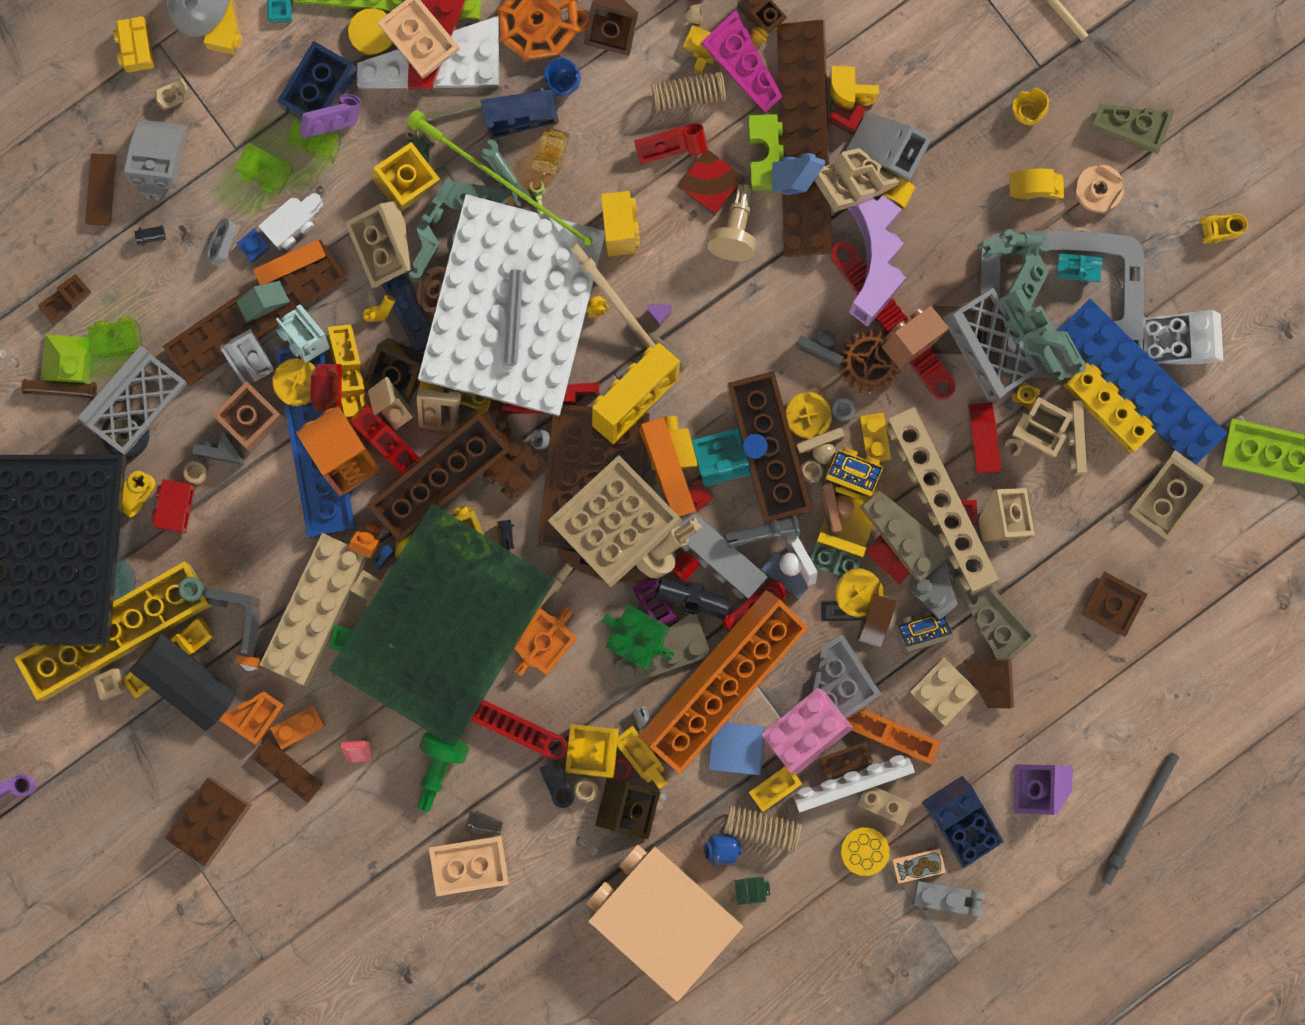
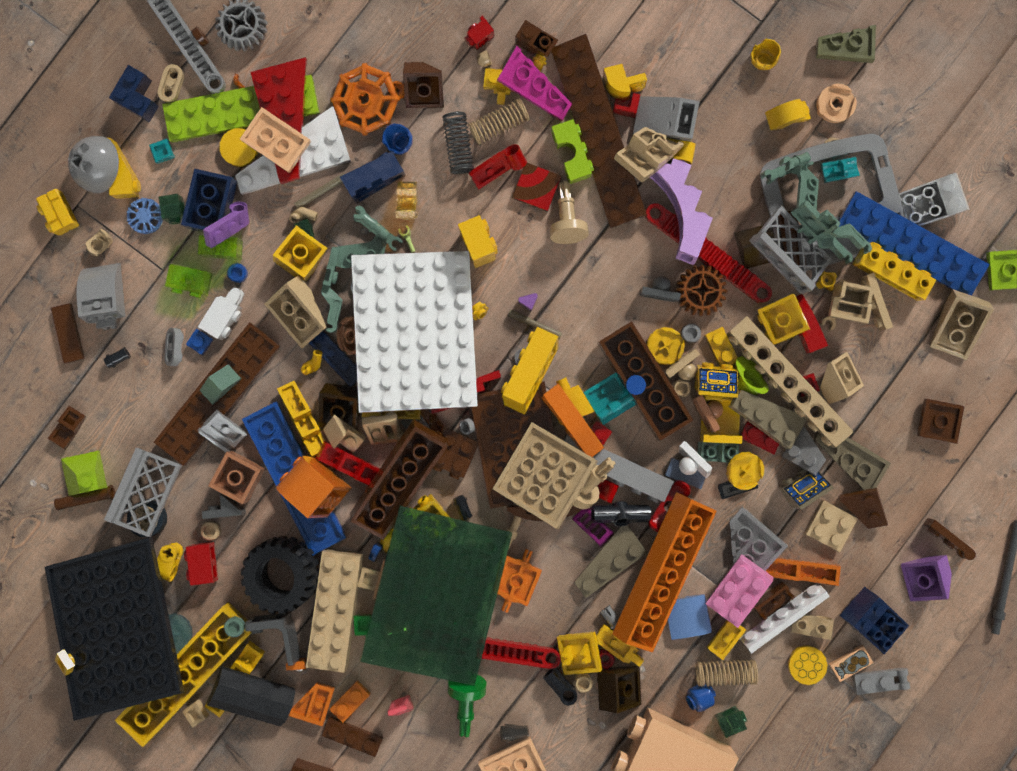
camera: 20 degrees left, 5 degrees up
(127, 343) = (104, 450): clear neon green brick -> none
(235, 79) = (144, 215): none -> medium blue wheel
(235, 538) = (261, 588): none -> black tyre
(271, 80) = (172, 208): none -> clear green brick
(289, 262) = (231, 347): orange sticker -> none
(293, 382) = (266, 439): yellow tile -> none
(303, 334) = (259, 401): light aqua hinge -> none
(323, 178) = (237, 273): none -> blue tile
(326, 387) = (290, 438): red slope -> none
(366, 541) = (358, 546): orange plate -> none
(417, 121) = (295, 207): lime piece -> none
(513, 317) = (418, 341): light grey axle -> none
(588, 265) = (464, 283): tan bar -> none
(632, 75) = (467, 166): none -> dark grey piece
(637, 637) = (588, 556): green plate -> none
(774, 530) = (669, 444): dark grey pin -> none
(795, 174) = (602, 162): medium blue slope -> none
(877, 620) = (765, 489): reddish brown slope -> none
(896, 481) = (749, 378): none -> lime piece
(914, 336) = (733, 262): nougat brick -> none
(956, 424) = (783, 319): none -> yellow plate
(1083, 750) = (950, 539): none -> reddish brown plate
(1218, 228) = (937, 106): yellow piece -> none

